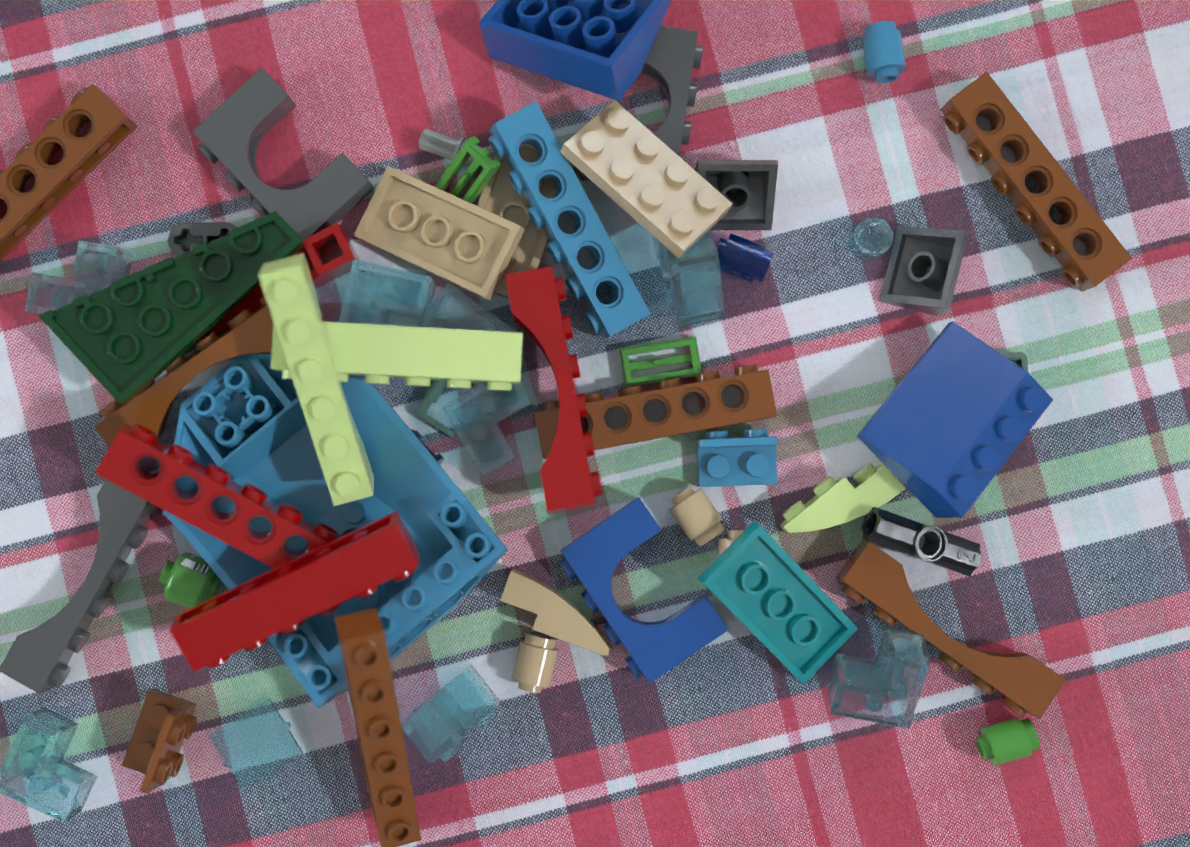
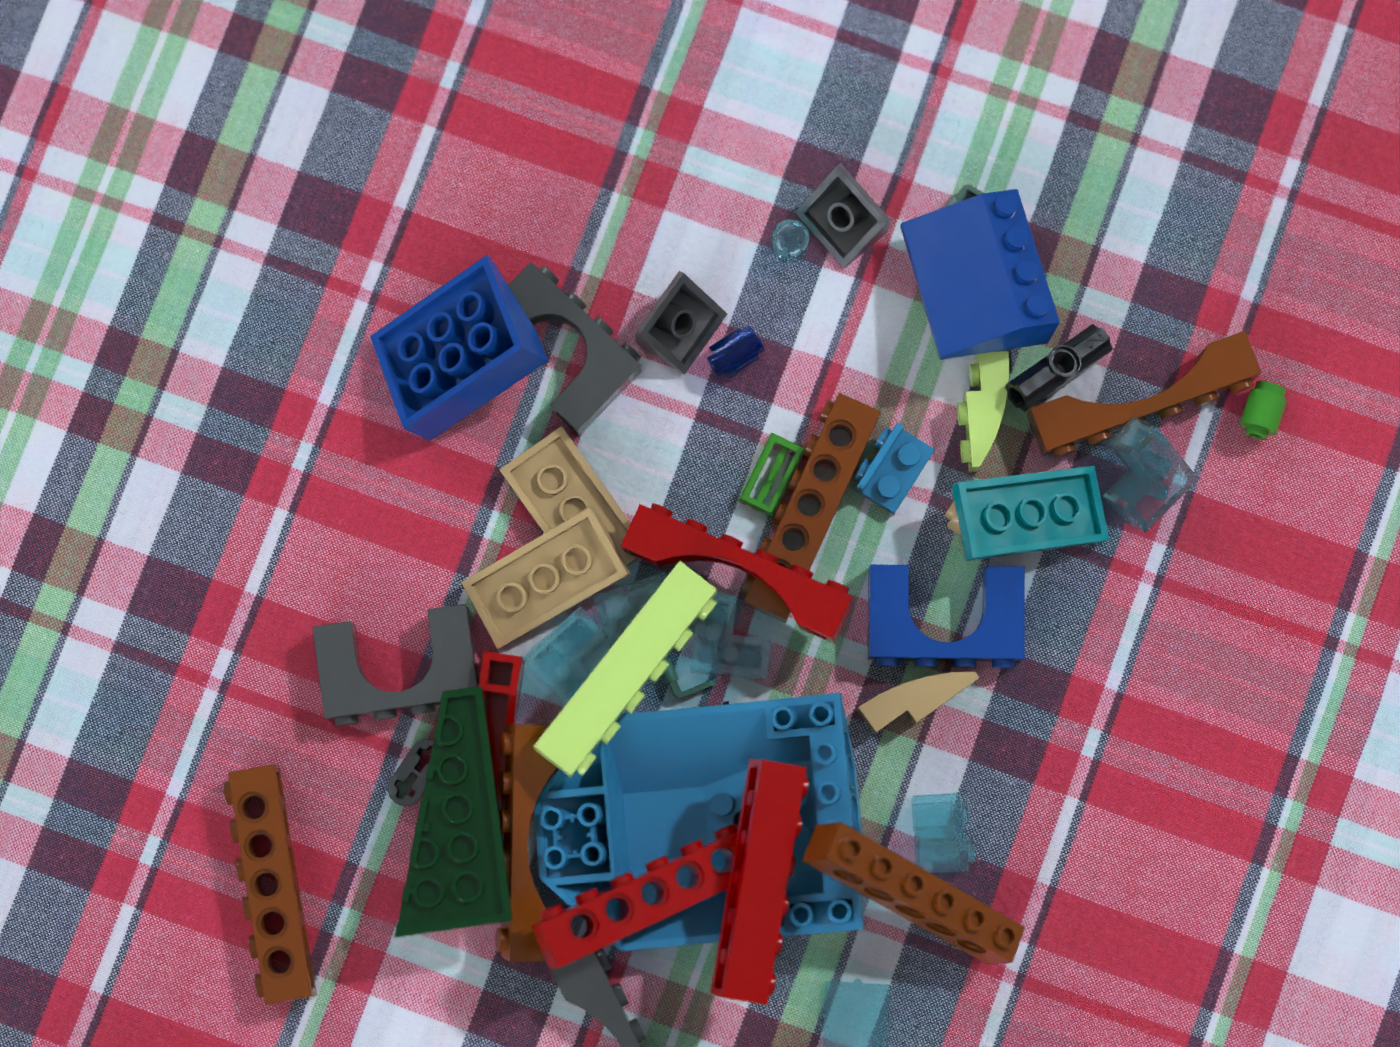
camera: 55 degrees left, 5 degrees down
(93, 270) = (386, 876): clear light blue brick -> none
(189, 580) = (686, 975): bright green head -> none
(315, 377) = (605, 745): yellowish green arch -> none
(445, 146) = (489, 517): light grey axle -> none
(480, 159) = (512, 501): bright green tile -> none
(532, 128) = (706, 467): dark azure brick -> none
(535, 662) = (945, 741): tan brick -> none
(646, 178) = (622, 382): tan plate -> none
(693, 282) = (714, 397): clear light blue brick -> none
(696, 515) = (916, 530): tan brick -> none
(883, 52) = (648, 127): dark azure brick -> none
(1056, 189) = (928, 68): dark orange brick -> none

